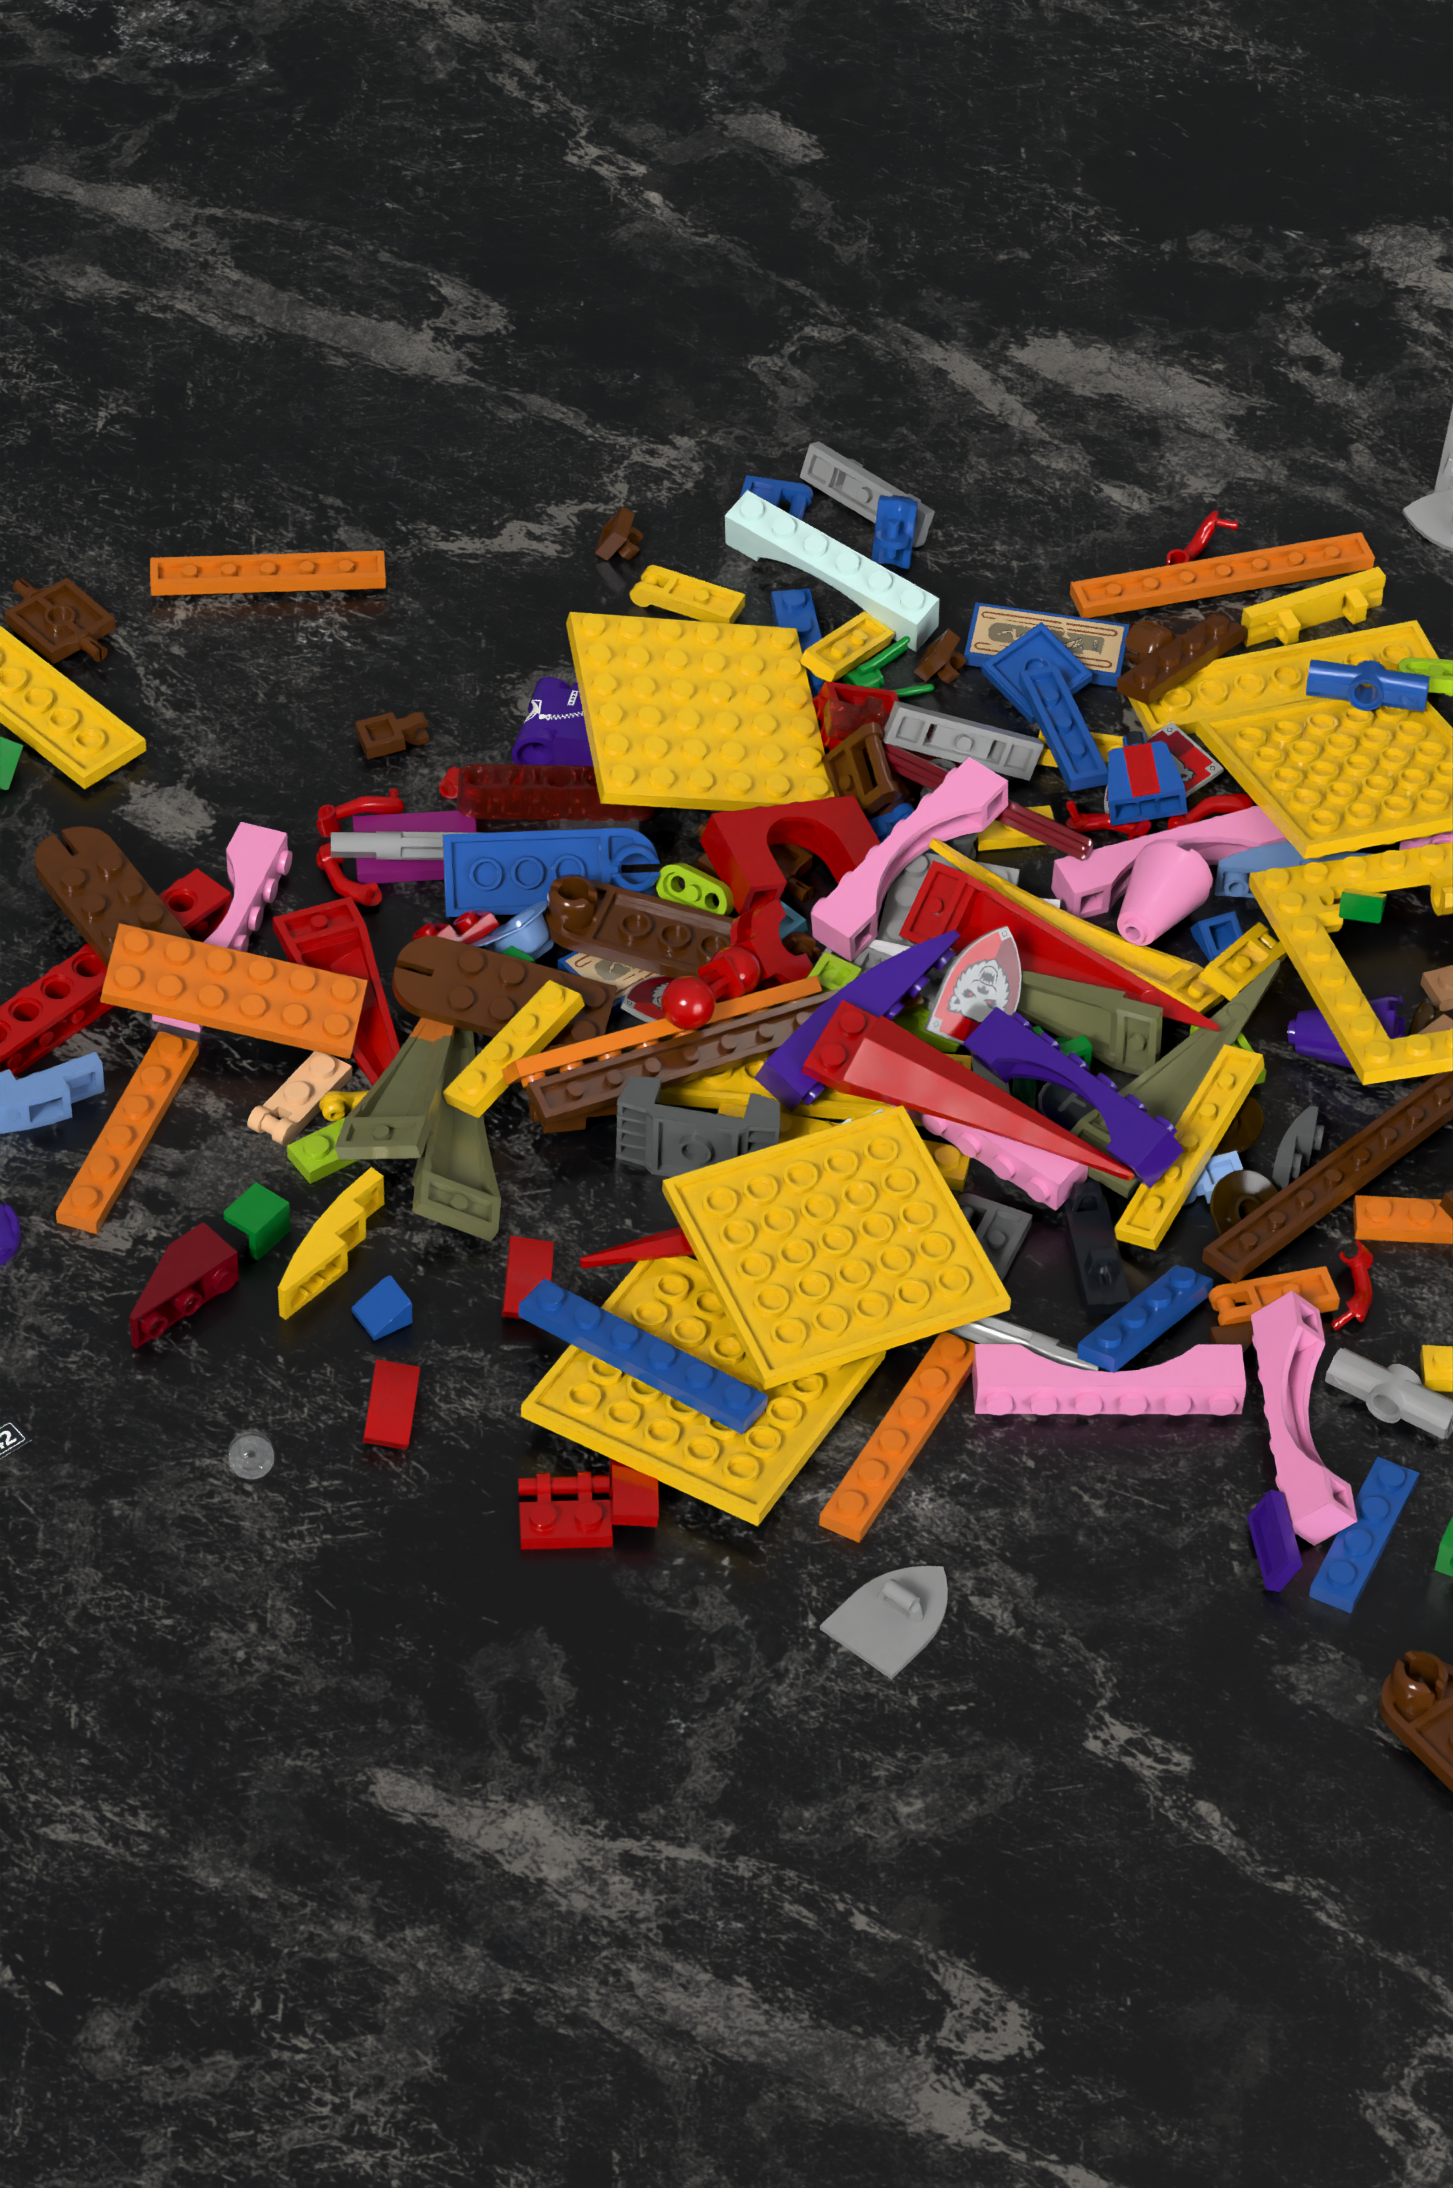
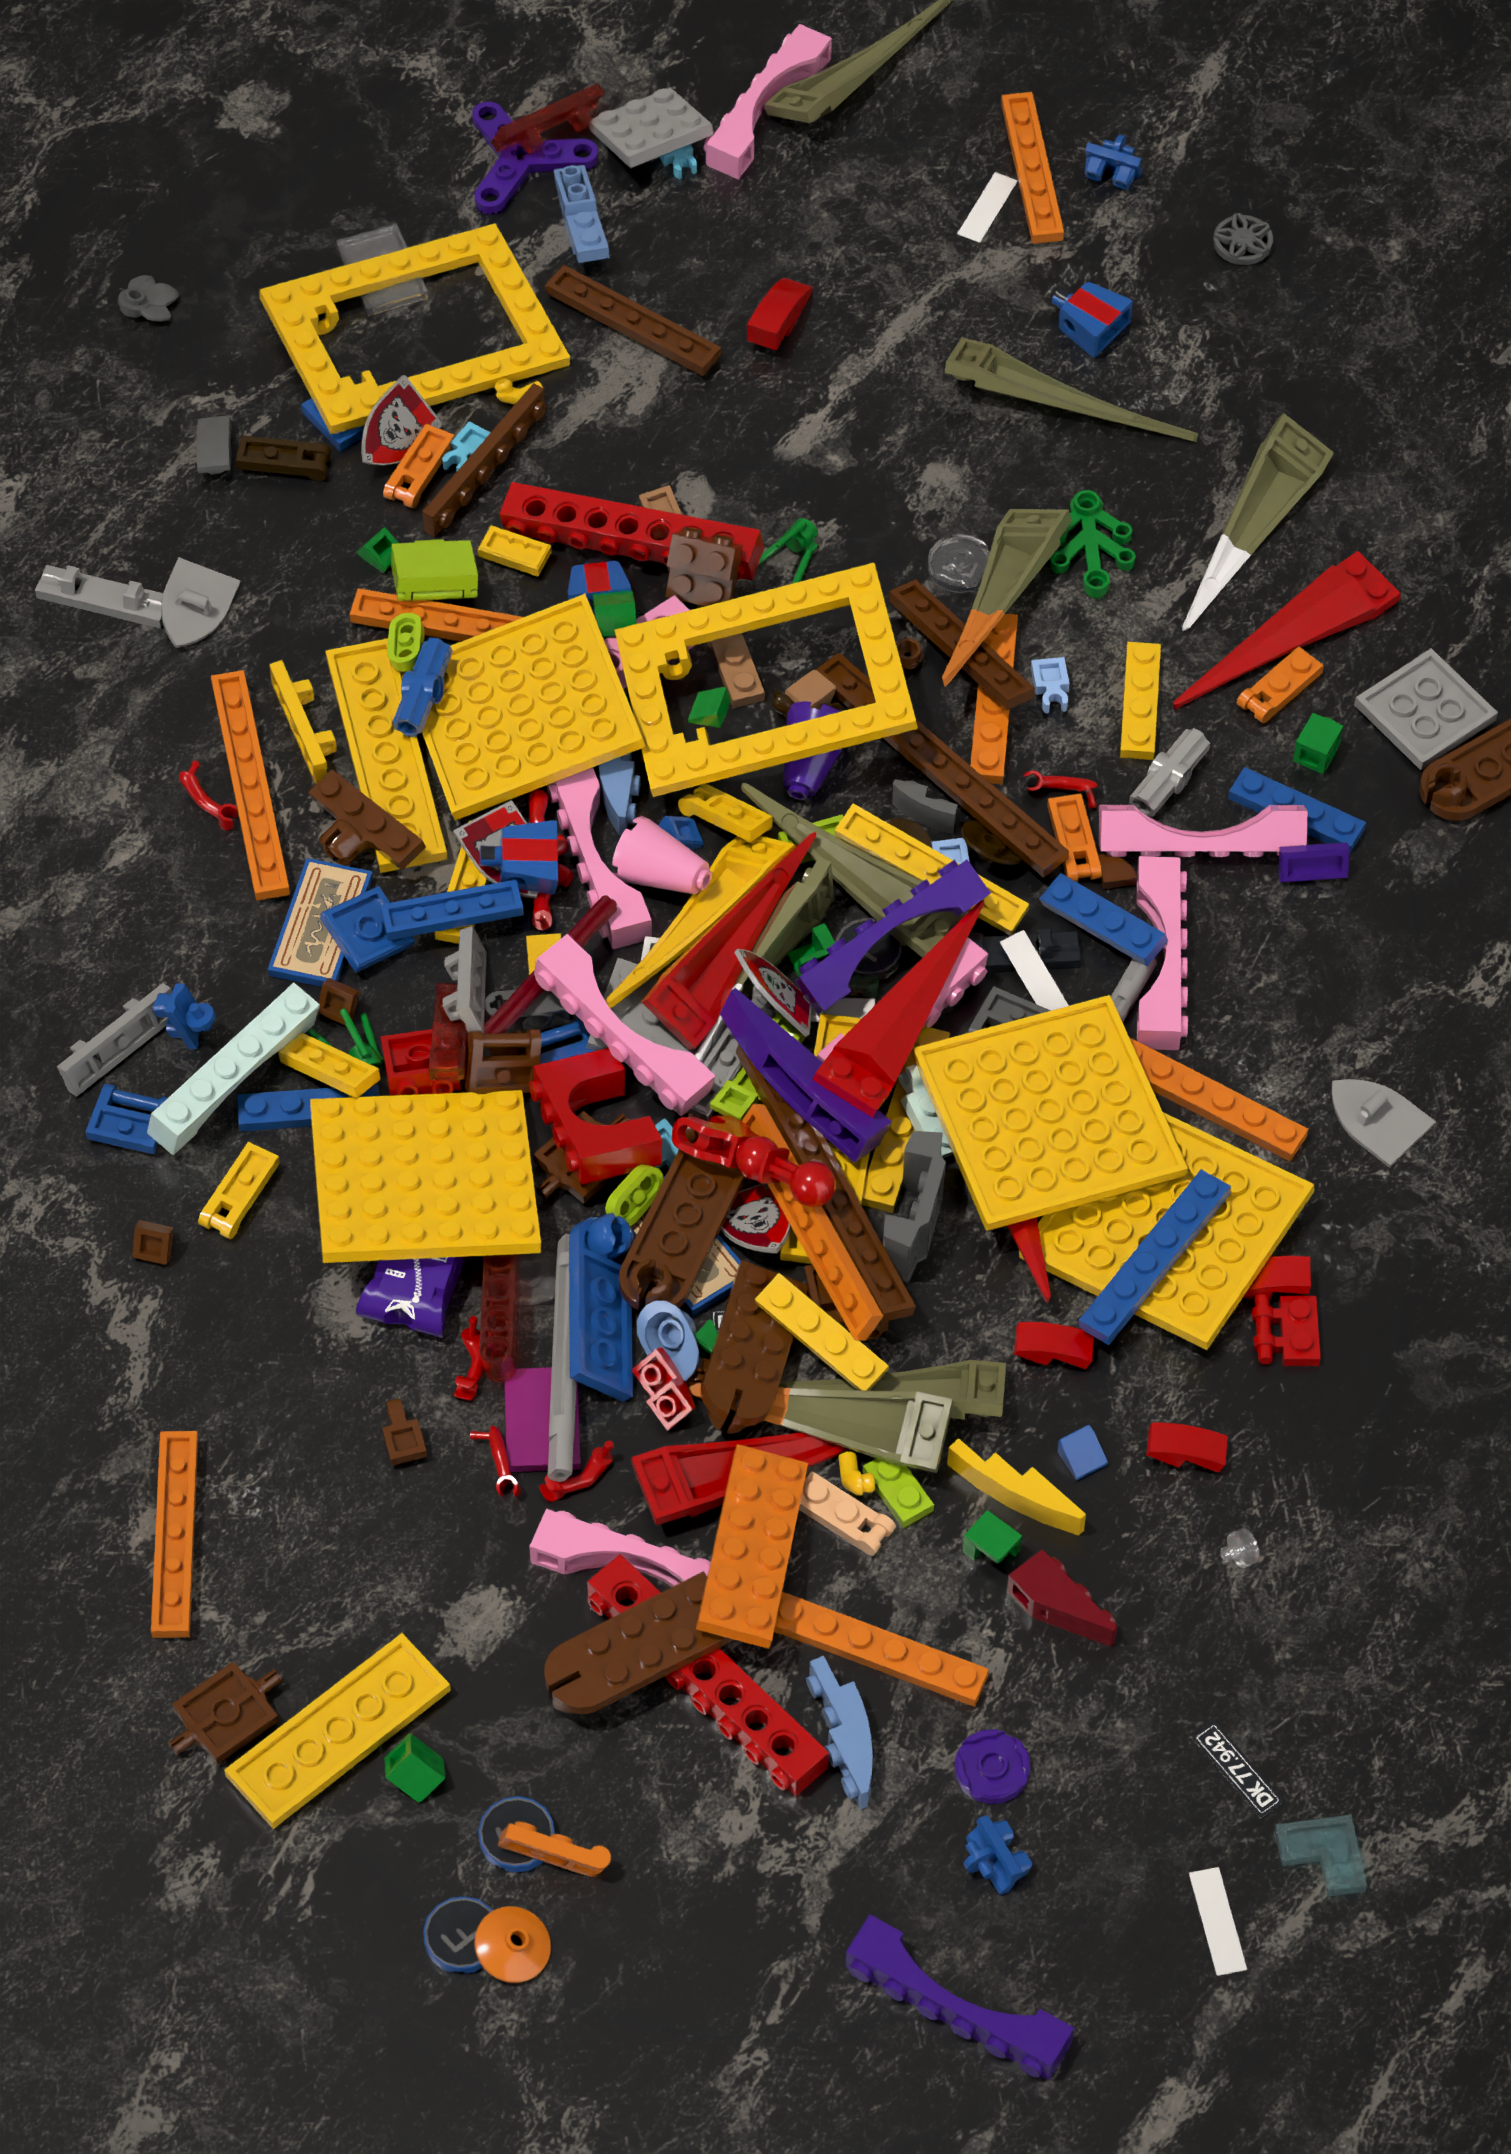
camera: 85 degrees left, 10 degrees up
(1056, 1261) = (1033, 971): none -> white sticker

